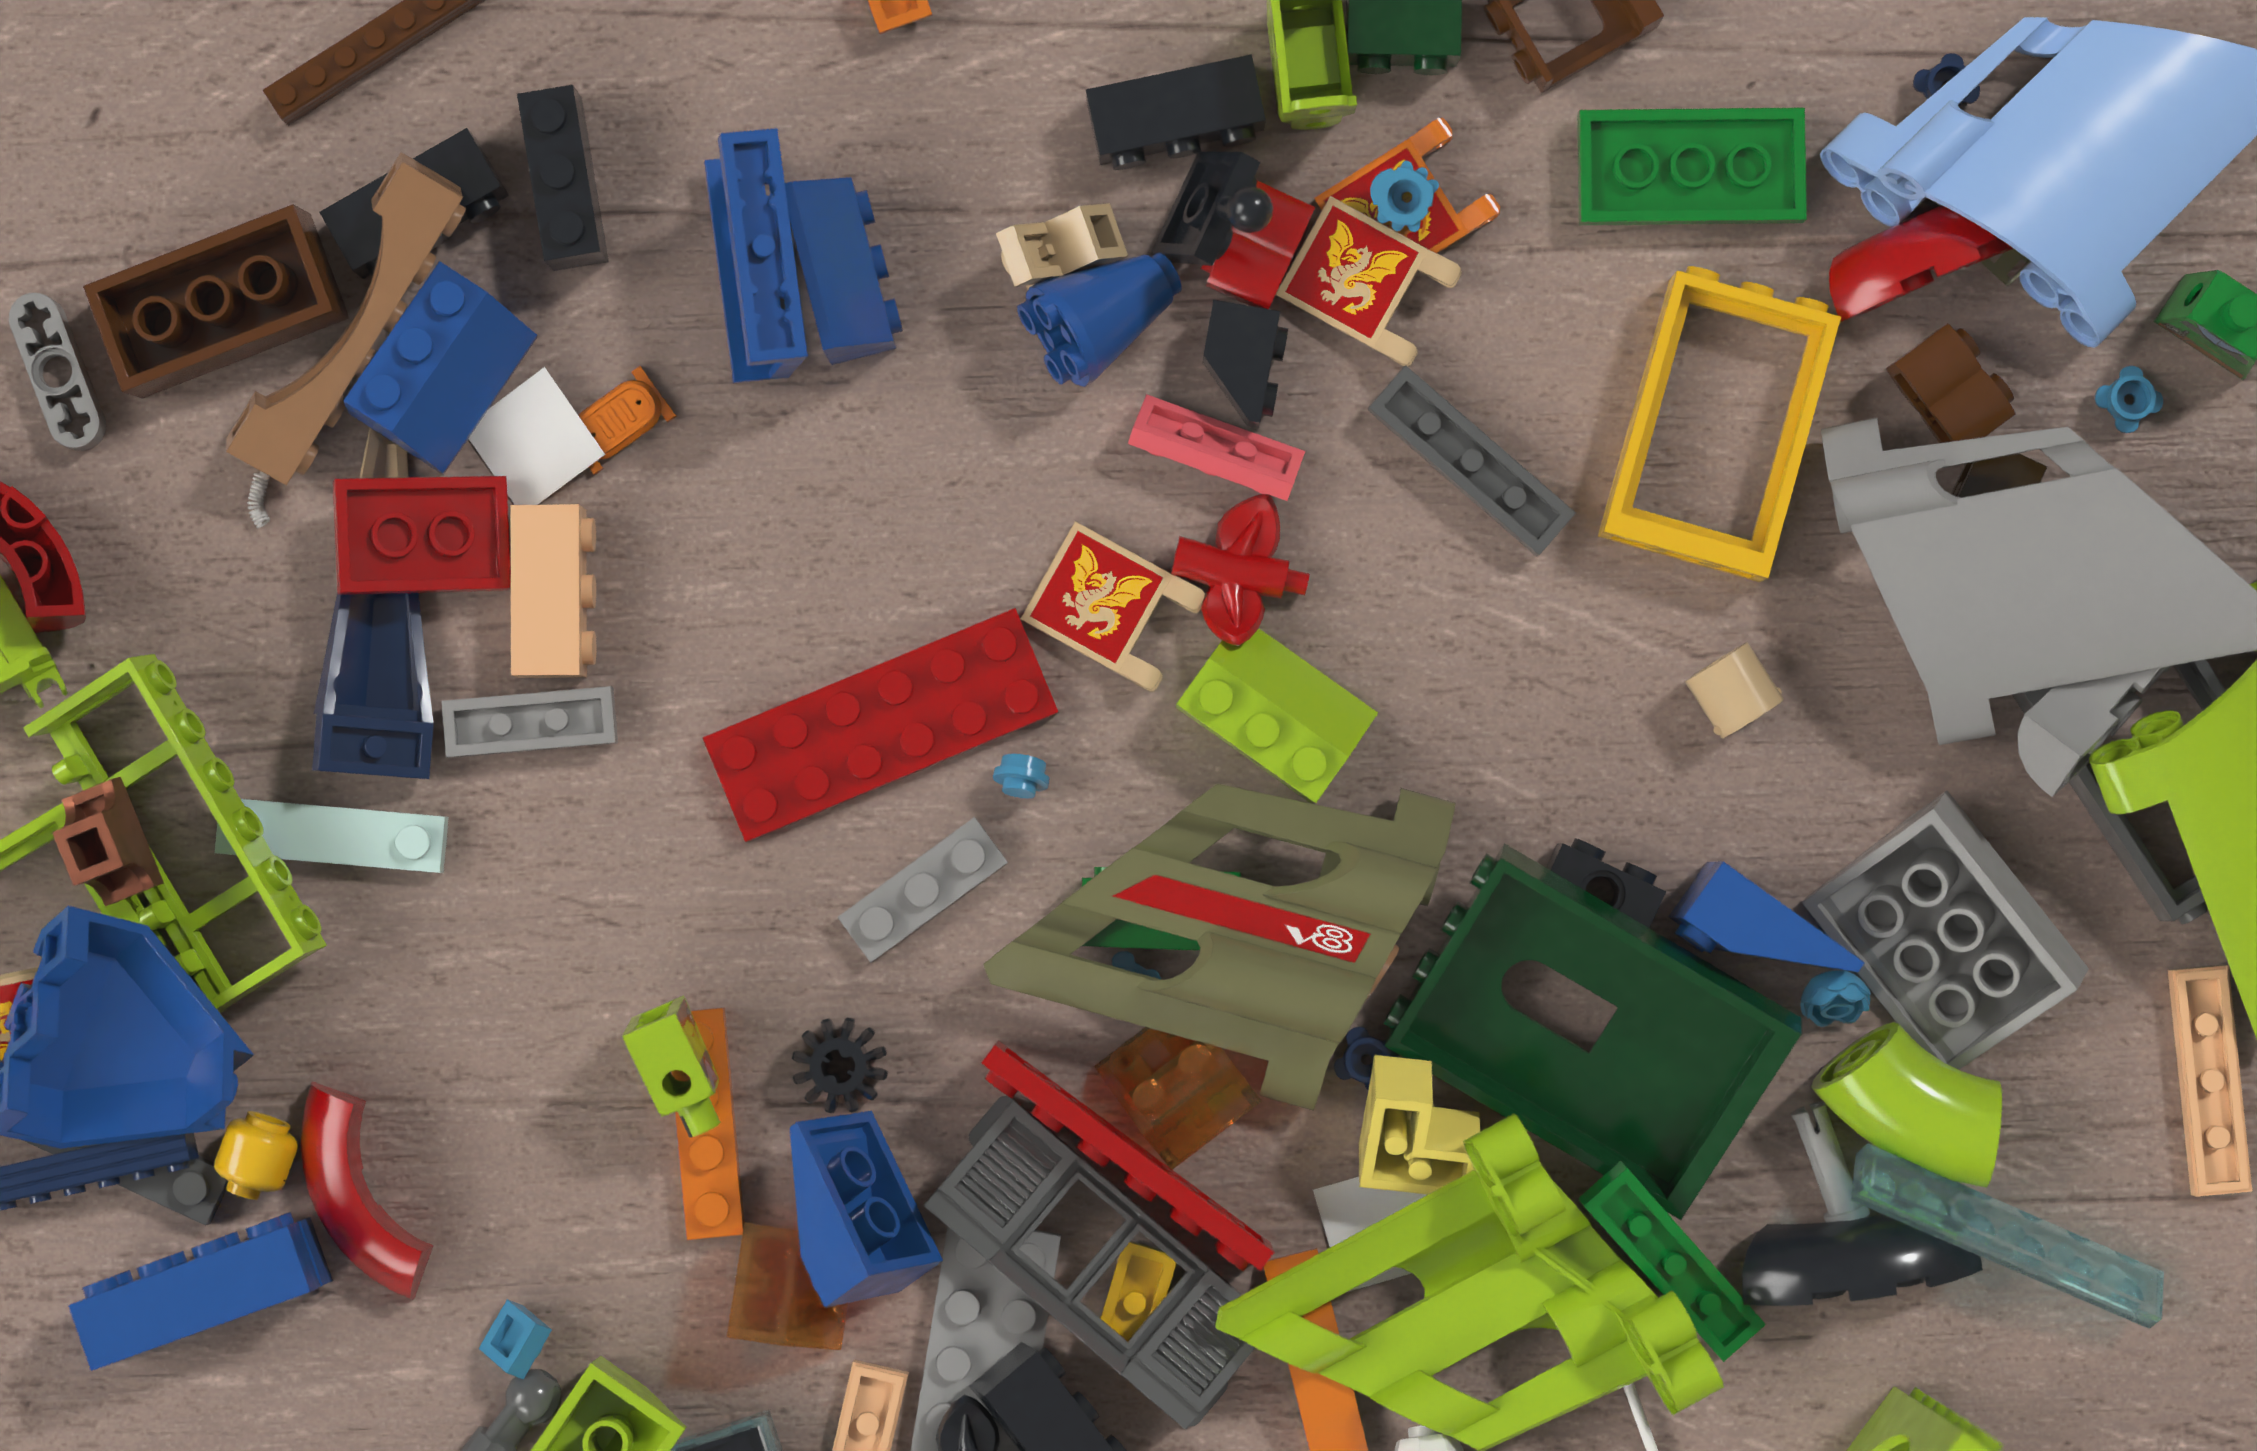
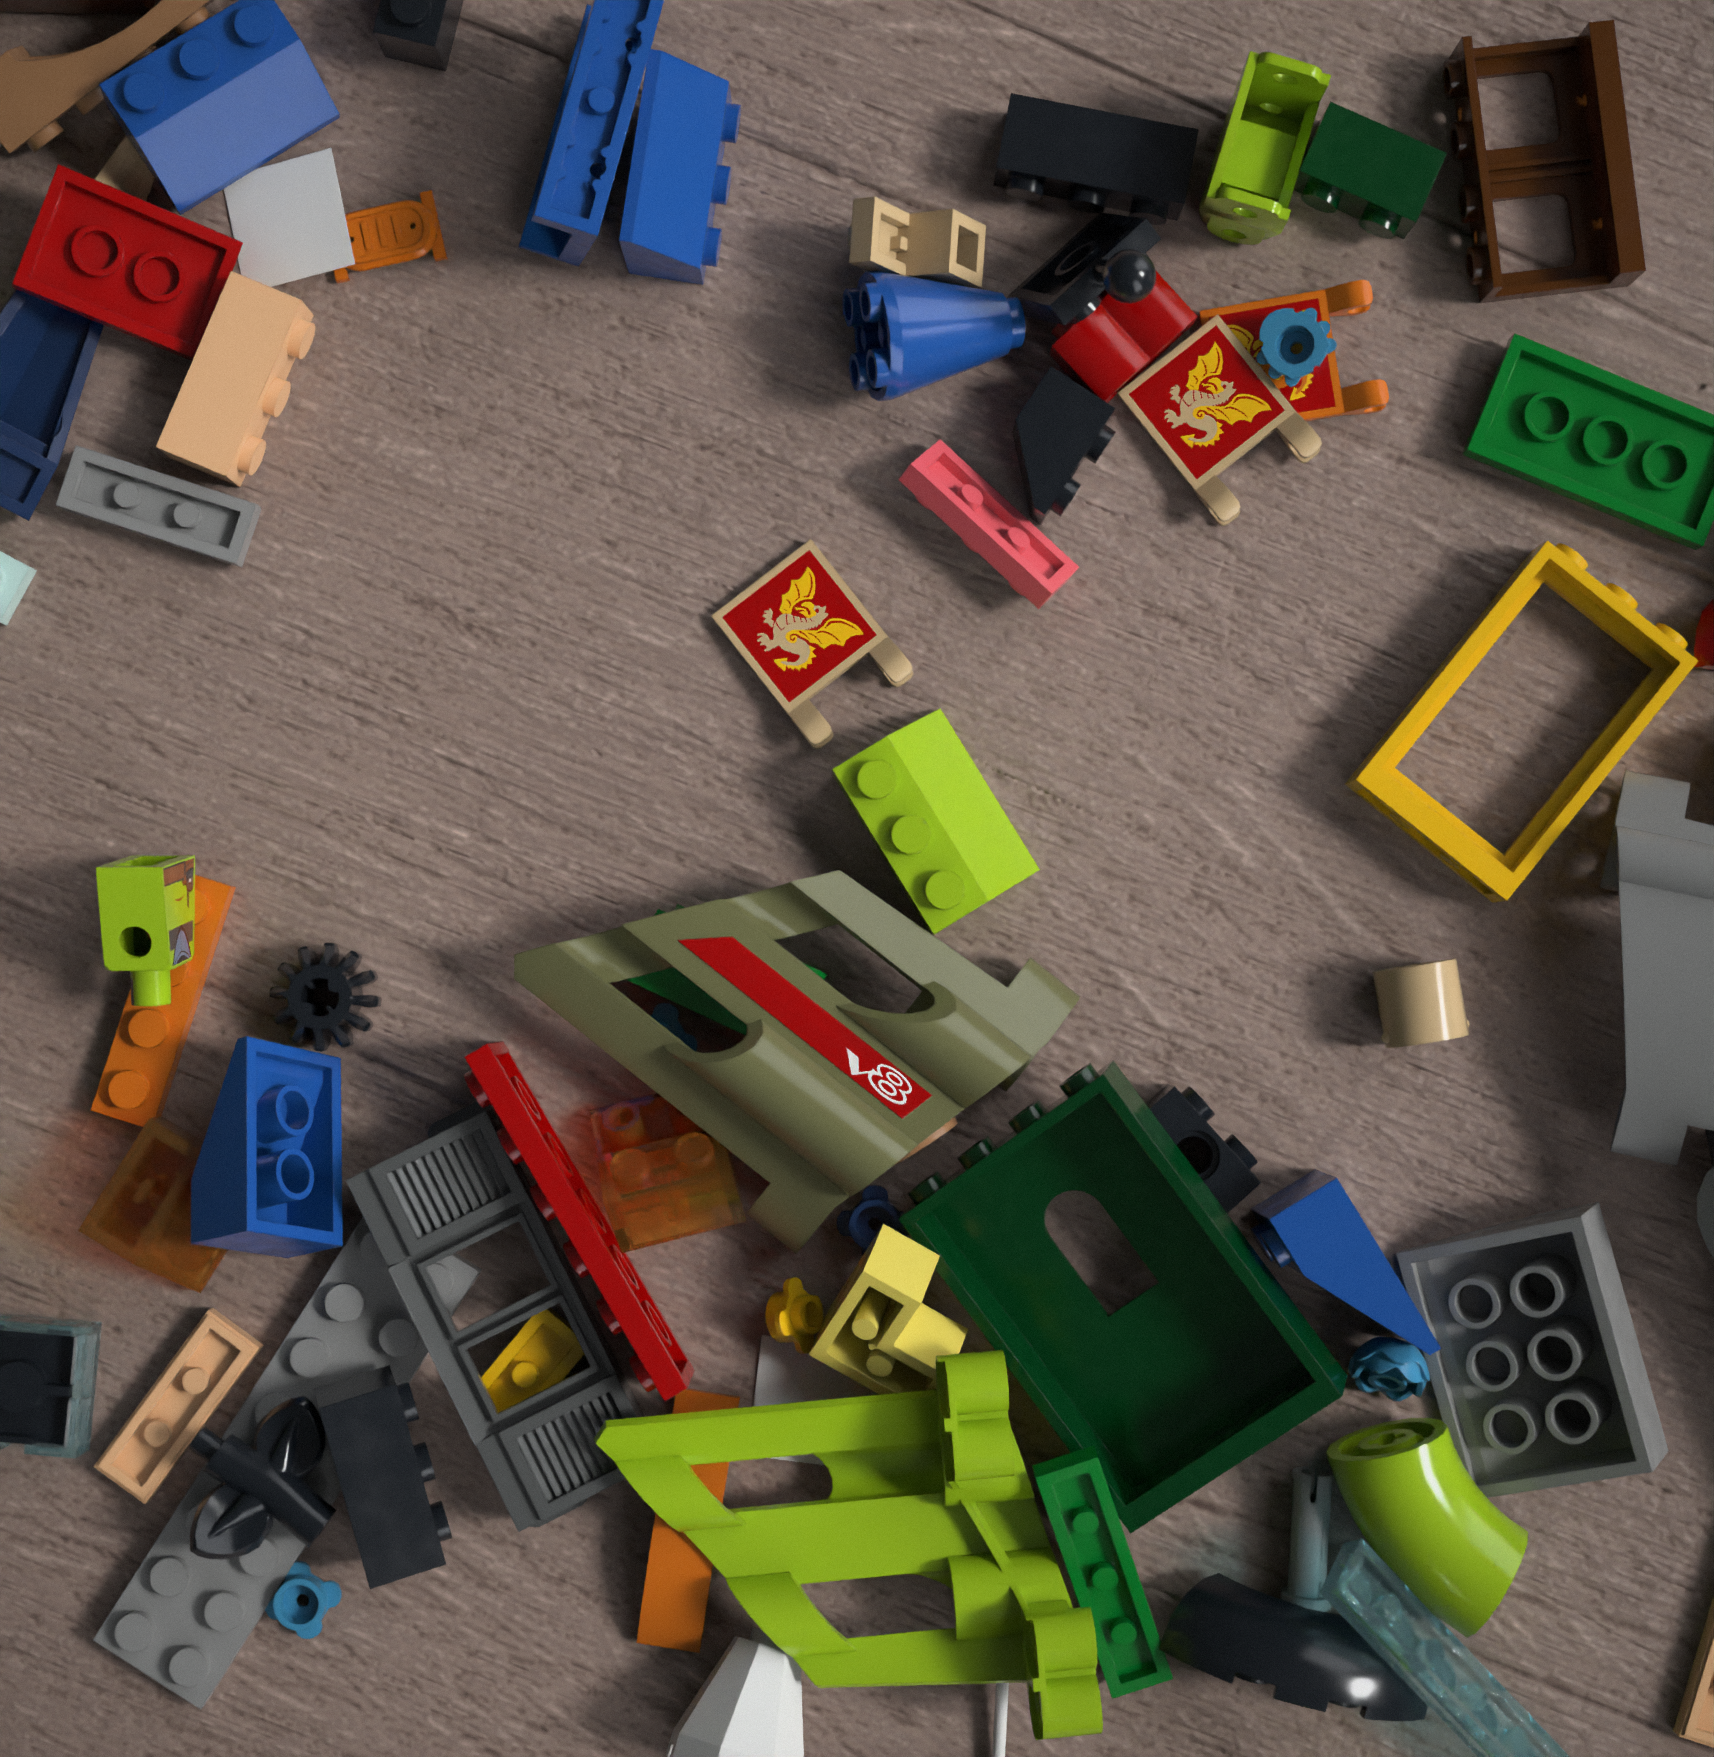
camera: 20 degrees right, 0 degrees up
(880, 725) = (519, 663): red plate -> none
(922, 889) = (490, 852): light grey plate -> none
(1021, 775) = (642, 777): dark azure plate -> none
(1239, 569) = (959, 659): red plant -> none
(1333, 1162) = (794, 1316): none -> yellow plate
(1471, 461) = (1247, 649): dark grey plate -> none

